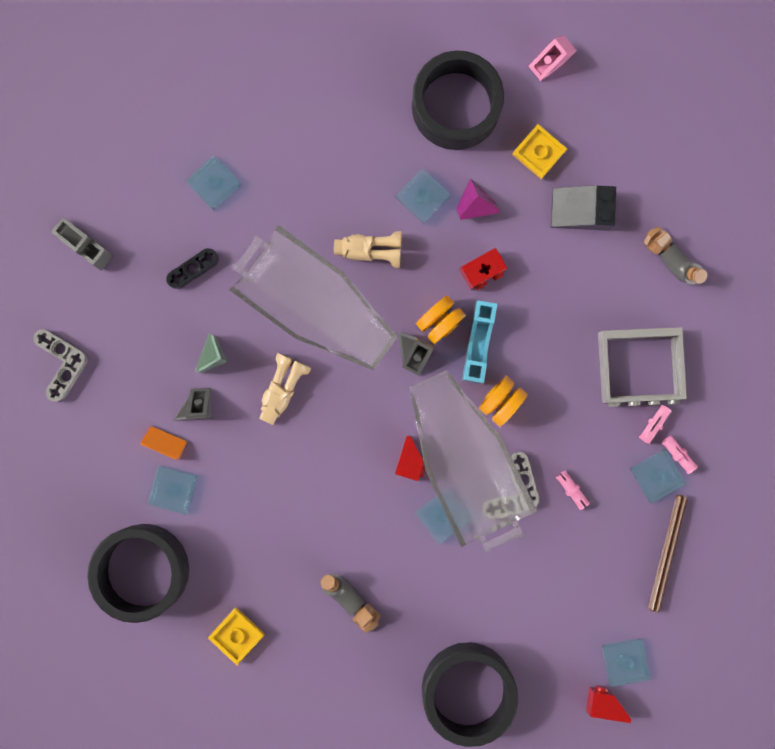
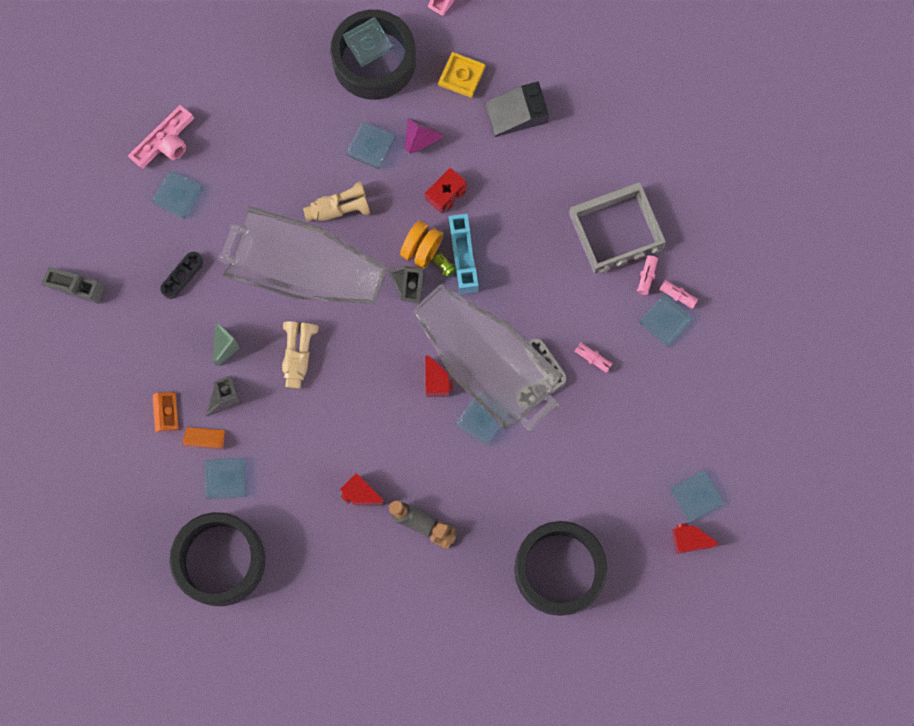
camera: 10 degrees left, 10 degrees down
(67, 358) = (89, 391): light grey beam -> none
(134, 403) = (165, 411): none -> orange slope
(217, 120) = (163, 139): none -> bright pink plate
(236, 635) = (327, 591): yellow plate -> none
(299, 551) = (360, 493): none -> red slope
(456, 87) = (368, 41): none -> clear light blue plate
(456, 346) = (447, 268): none -> lime pin
(505, 403) = (498, 295): light orange wheel -> none
(667, 553) = (699, 384): axle -> none
(680, 266) = (620, 131): piece -> none

